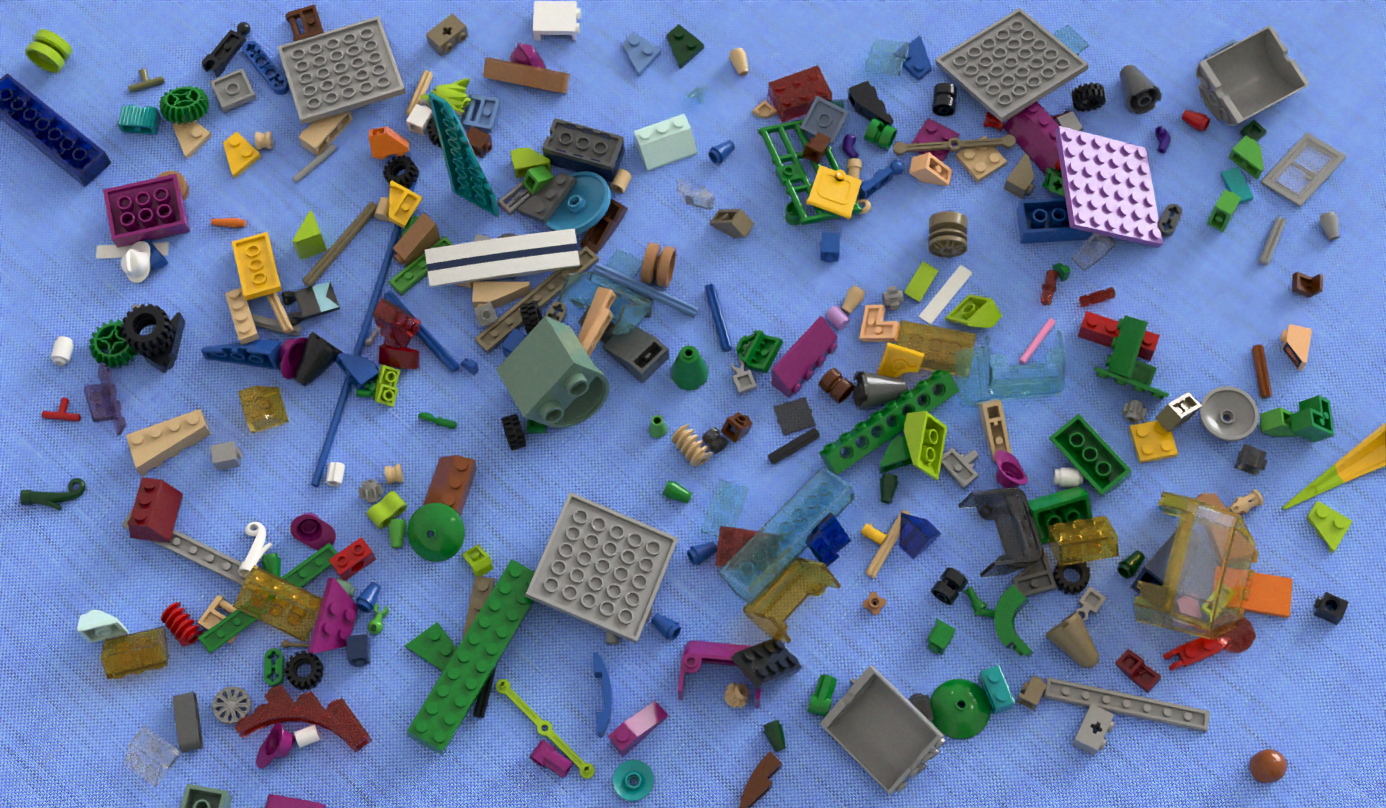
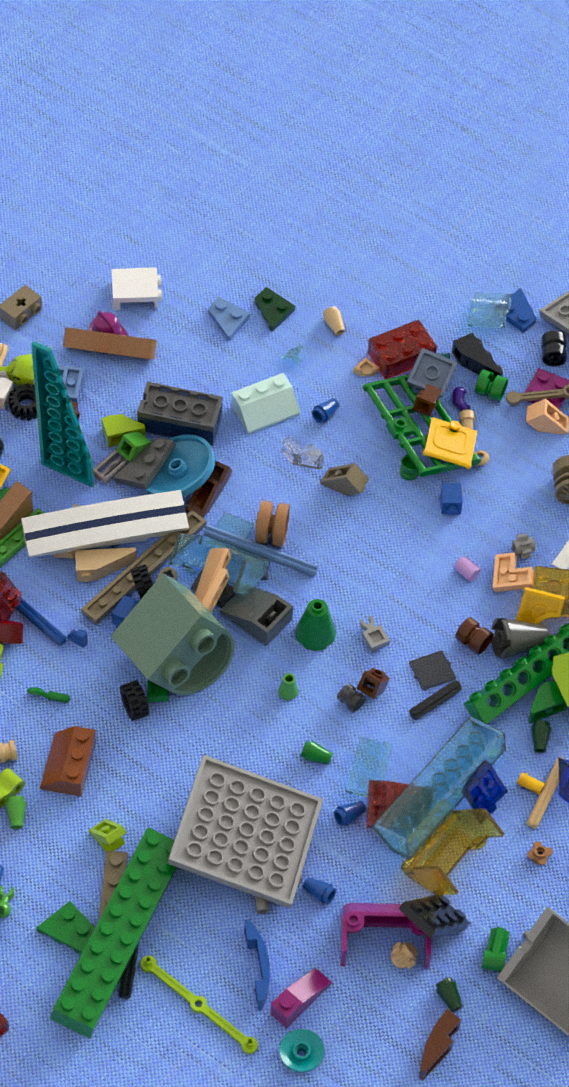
camera: 10 degrees left, 10 degrees down
(447, 529) = (74, 804): green dish -> none
(485, 315) = (91, 583): light grey bracket -> none
(547, 756) = (203, 1031): magenta piece -> none
(620, 181) = (221, 444): tan piece -> none
(689, 446) = (325, 706): tan piece -> none
(718, 317) = (340, 575): blue axle -> none
(758, 350) = (387, 605): green slope -> none
(804, 358) = (437, 609): magenta slope -> none
(853, 298) = (482, 547): tan cone -> none
(880, 178) = (496, 429): blue plate -> none
(921, 281) = (550, 529): lime slope -> none

